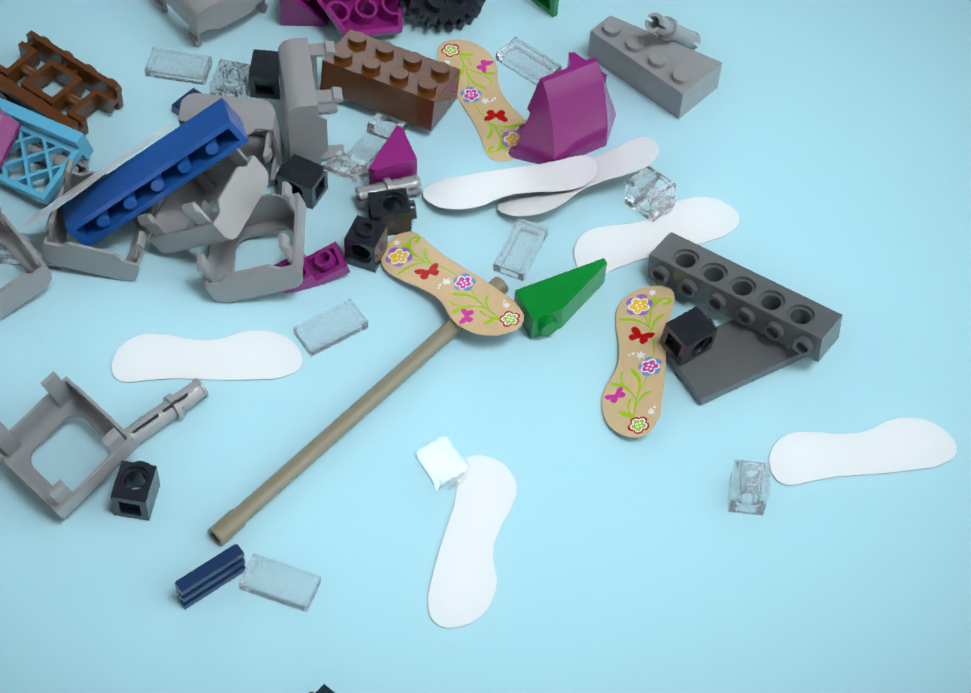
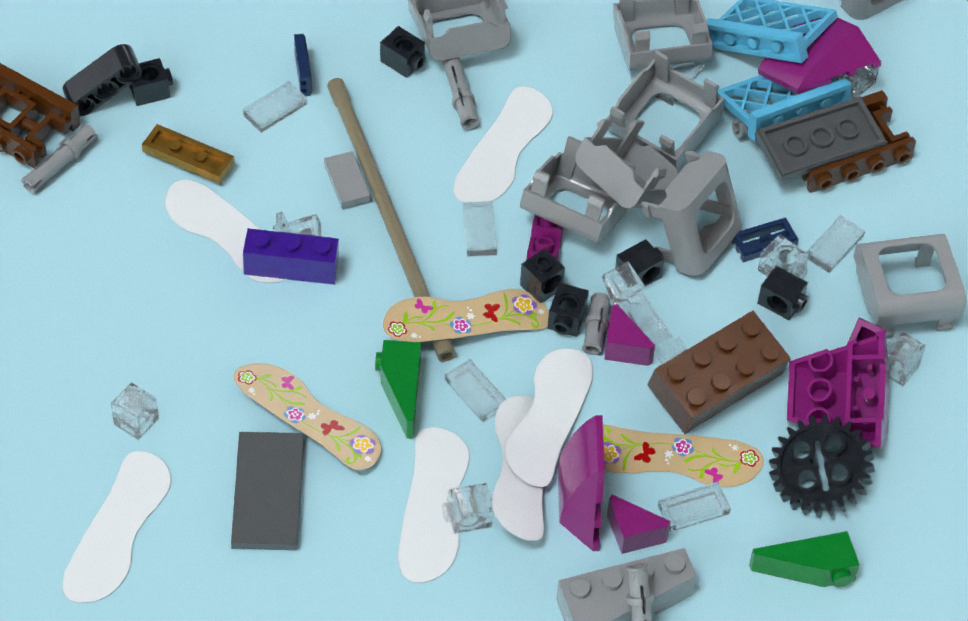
camera: 120 degrees right, 0 degrees up
(71, 92) = (819, 138): none -> dark grey tile
(83, 185) = (694, 104): white sticker -> none
(154, 173) = (668, 128): blue brick -> none
(301, 101) = (684, 289): light grey piece -> none
(341, 464) = (347, 180): none -> light grey tile
(403, 624) = (188, 153): none -> pearl gold plate
(478, 443) = (290, 256): none -> dark purple brick
(688, 335) = (294, 439): black brick -> none
(745, 296) = (267, 527): dark grey brick -> none

